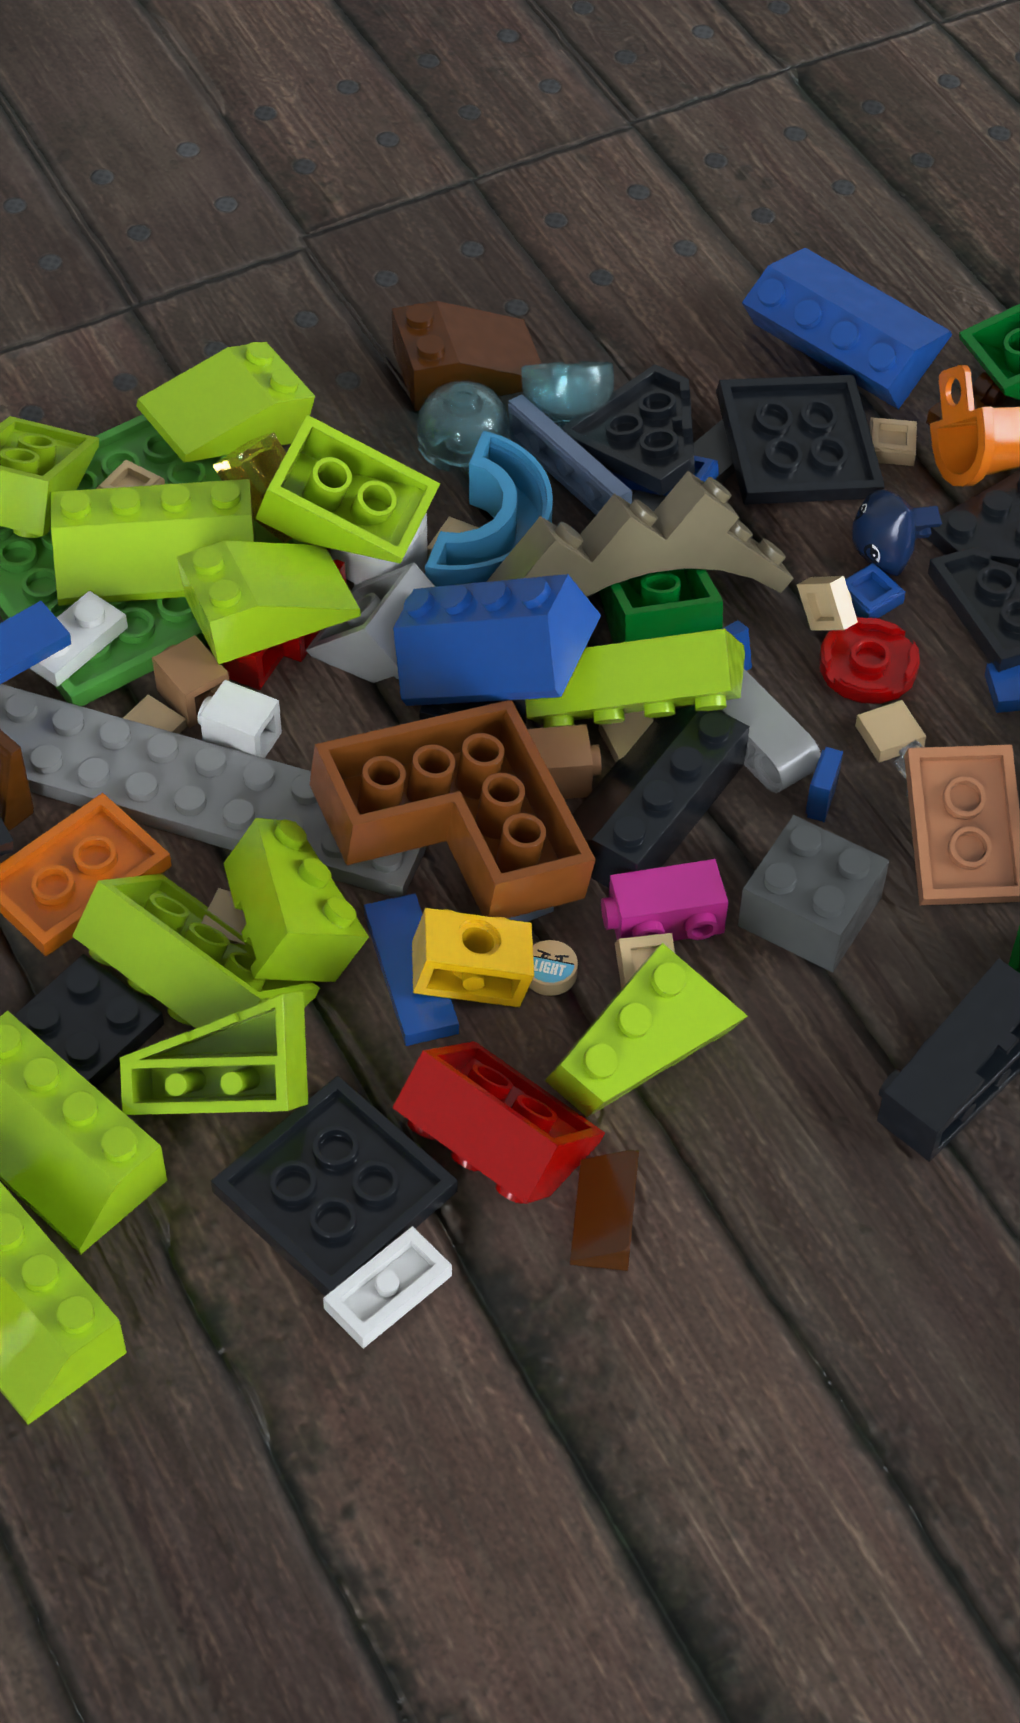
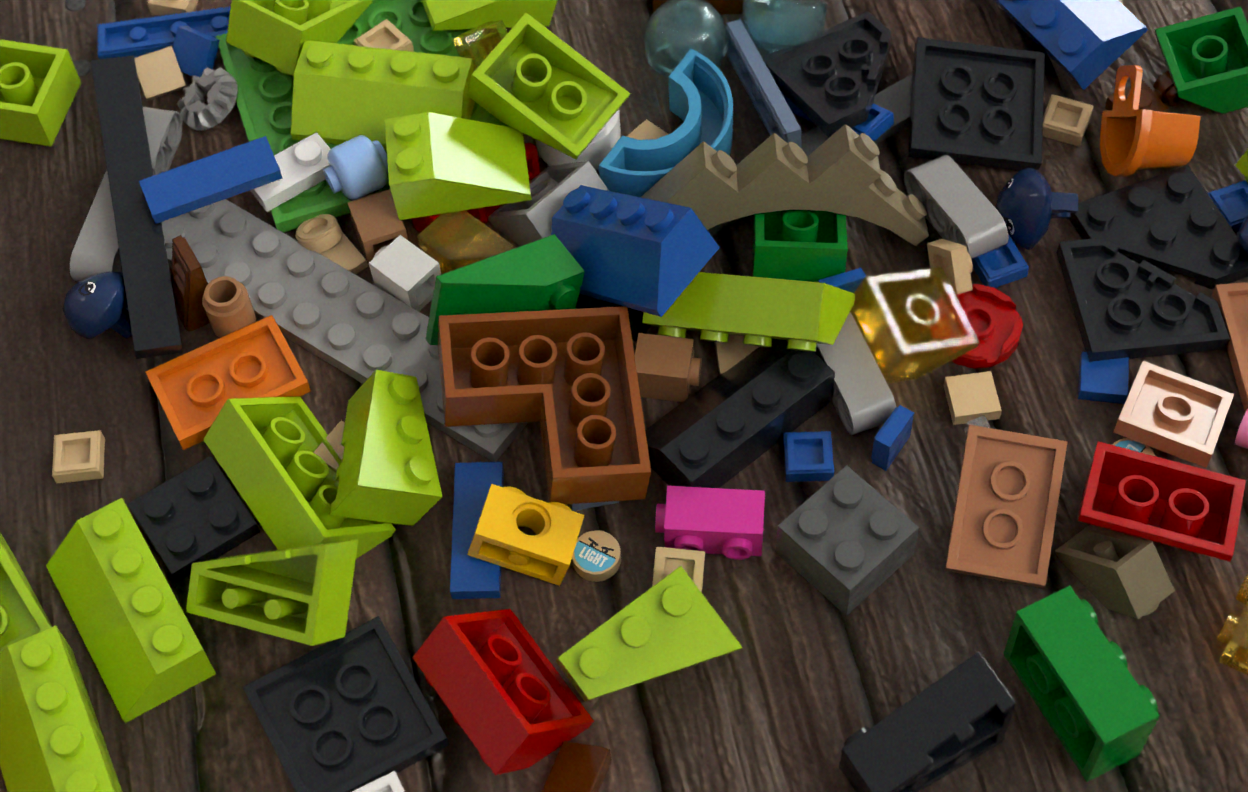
camera: 20 degrees right, 5 degrees up
(51, 791) = (227, 305): none -> medium nougat brick
(123, 699) = (319, 233): none -> tan tile
(153, 617) = (357, 167): none -> light blue head
(306, 683) = (460, 240): none -> clear yellow slope
(383, 694) = (518, 280): none -> green slope
(740, 823) = (808, 456): none -> blue tile
(809, 664) = (912, 322): none -> clear yellow slope
(814, 541) = (957, 206): none -> light grey beam

